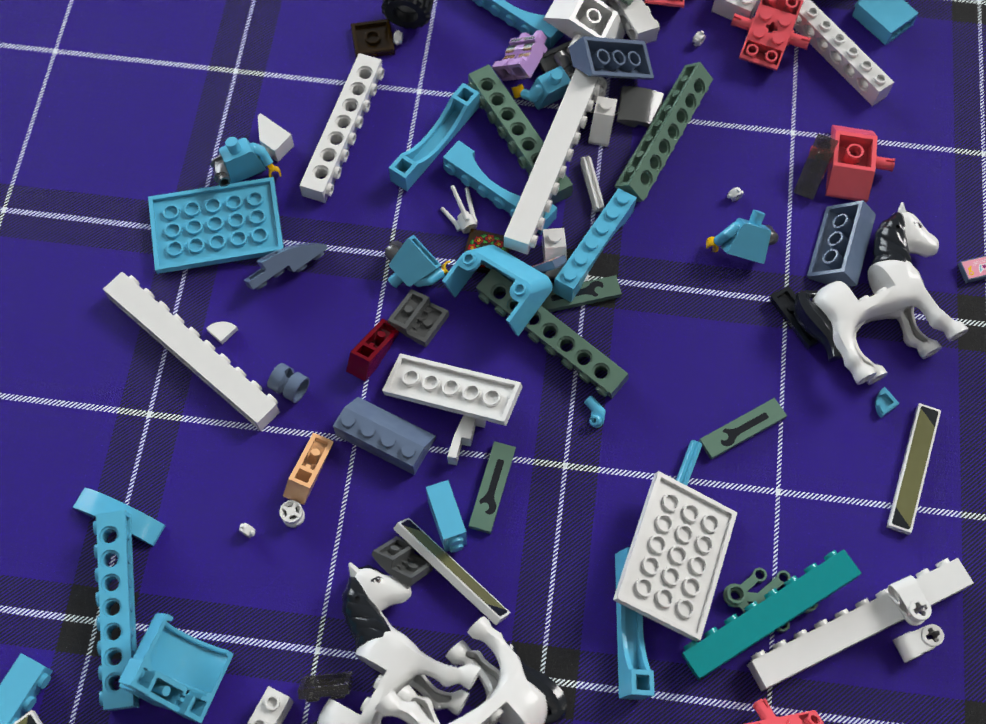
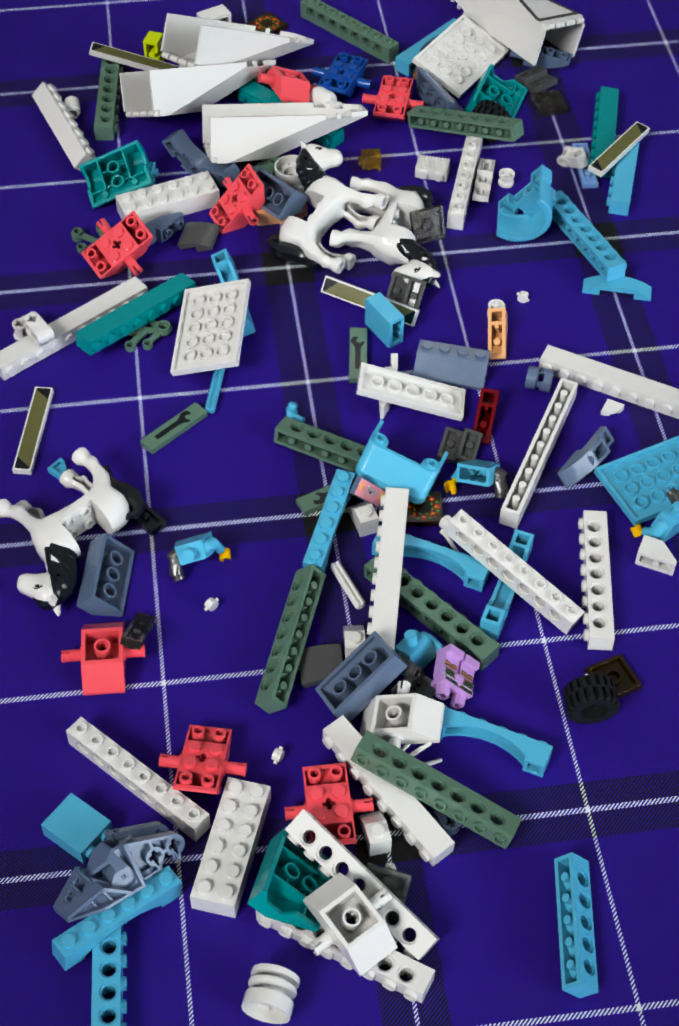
camera: 165 degrees right, 15 degrees down
(332, 281) = (538, 454): none -> white brick
(428, 135) = (514, 571): none -> white brick

